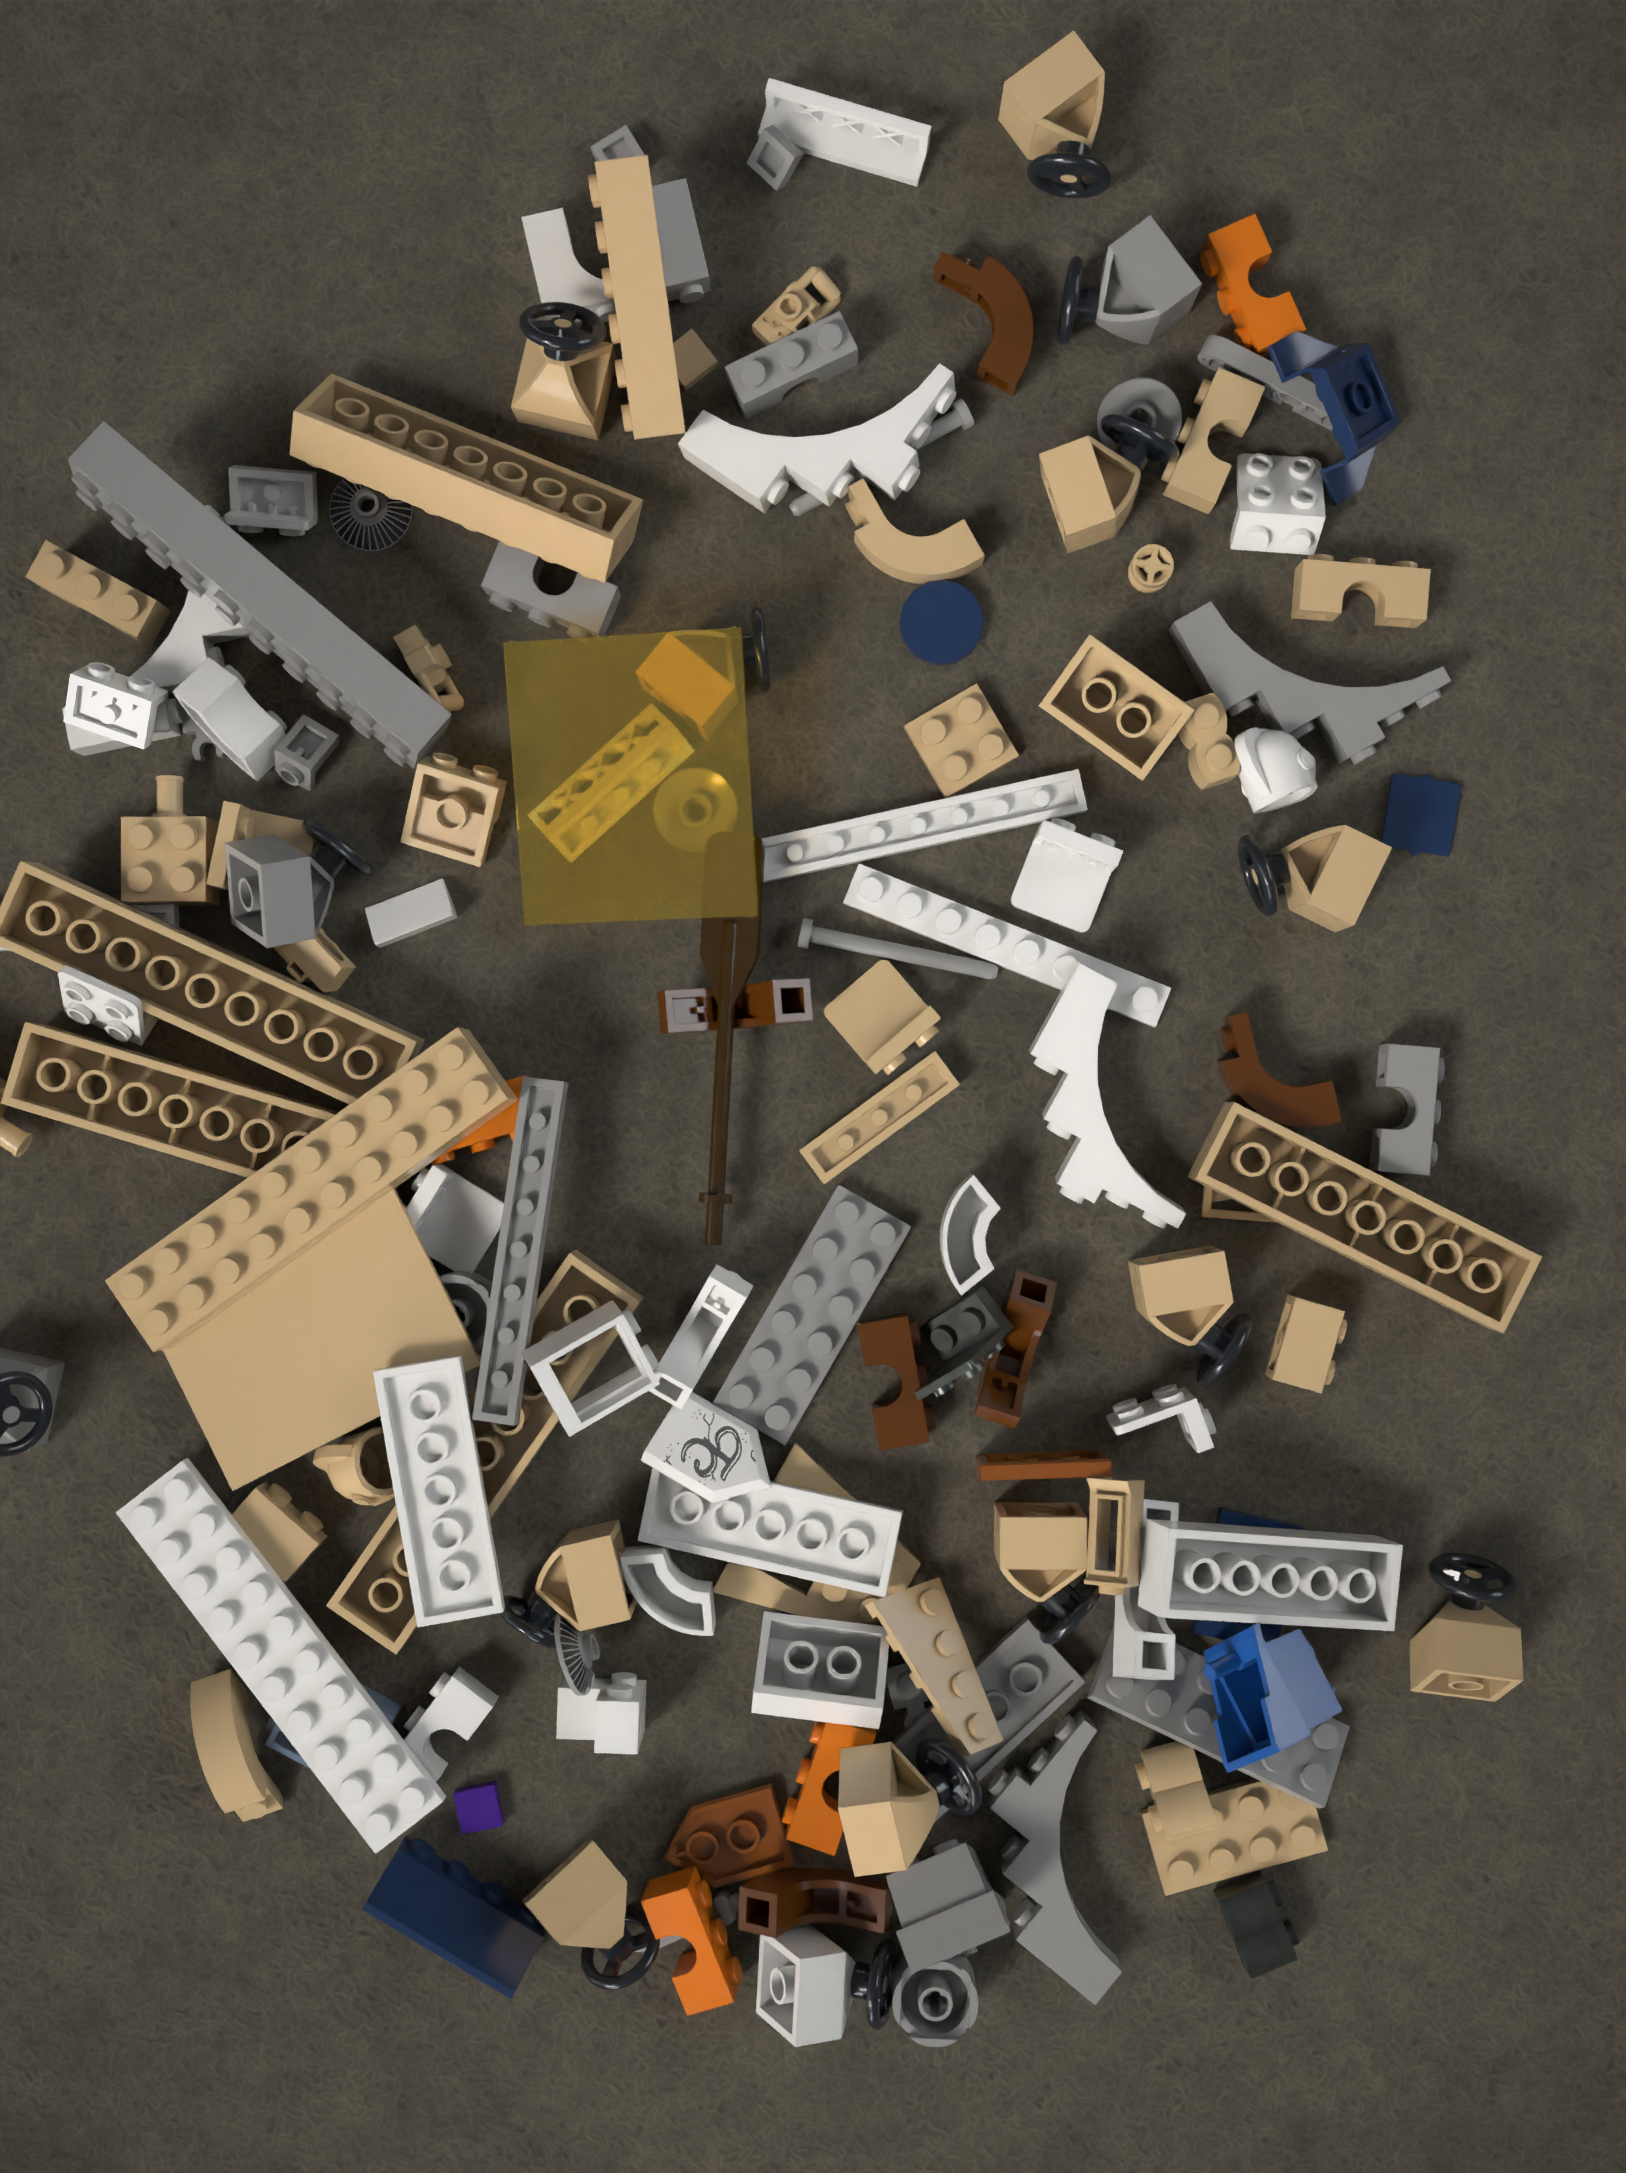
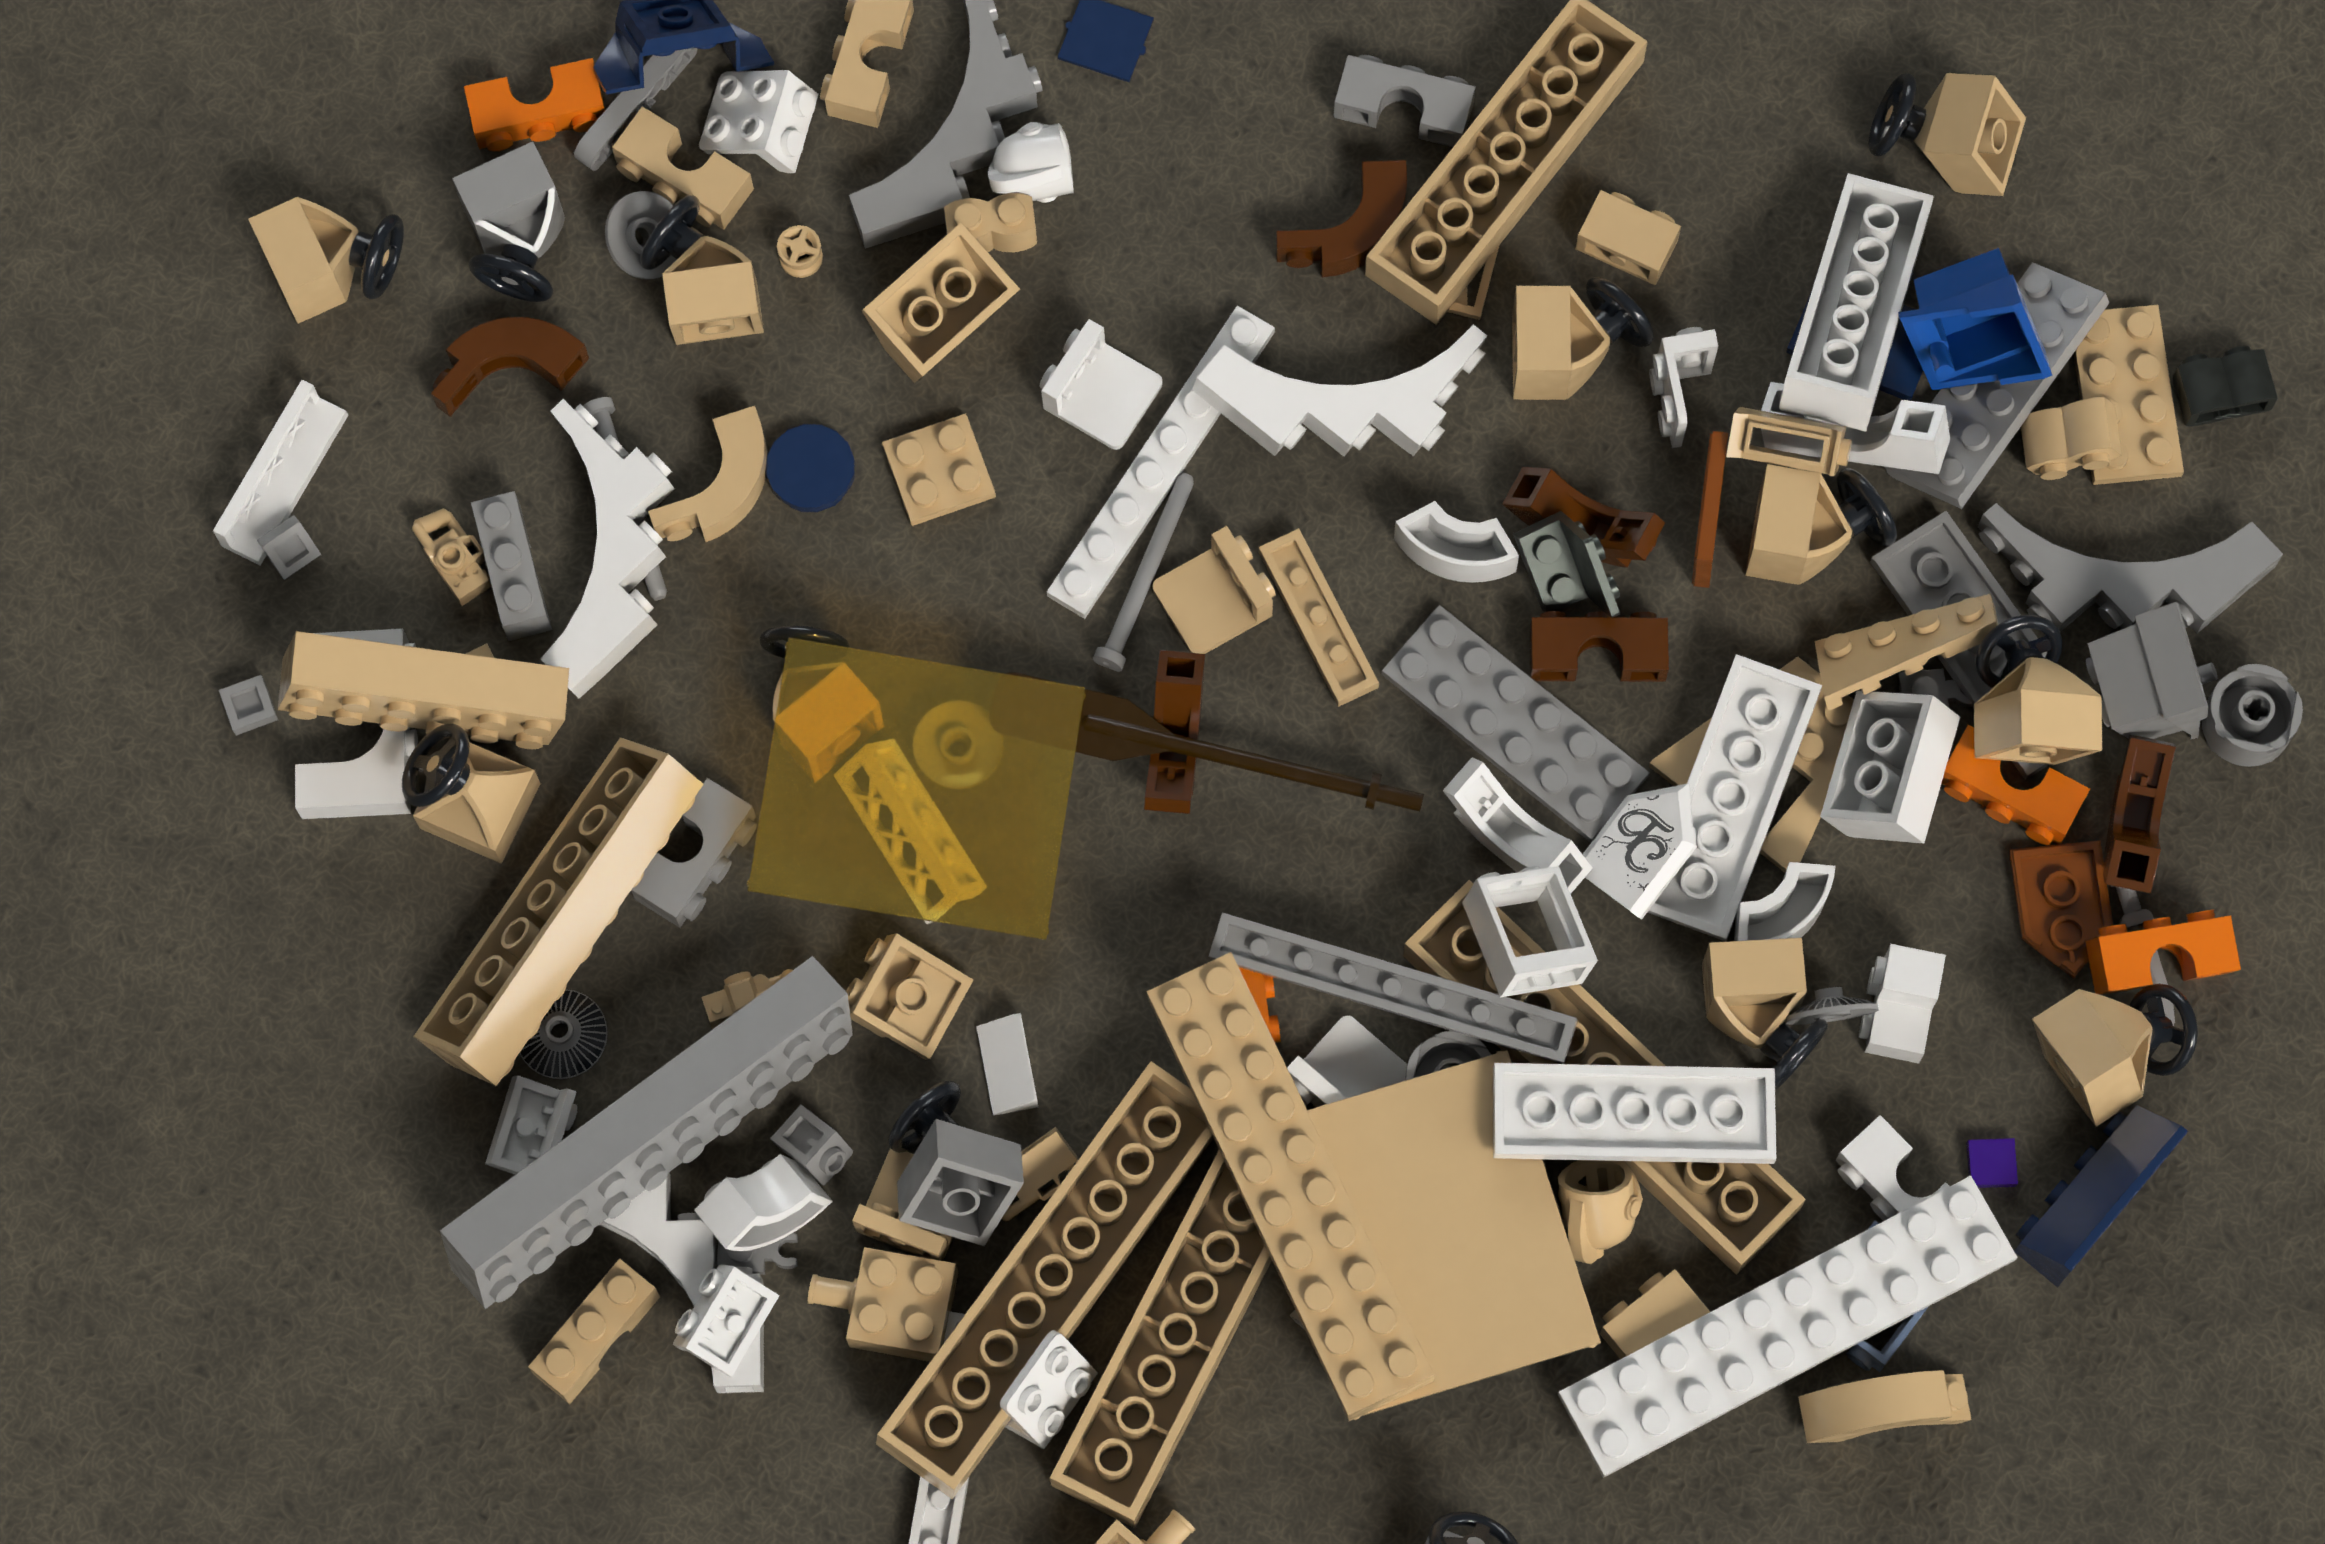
camera: 75 degrees left, 15 degrees down
(811, 1984) = (2219, 833): white piece -> none
(923, 825) = (1019, 515): white plate -> none
(1322, 874) = (1151, 142): tan piece -> none

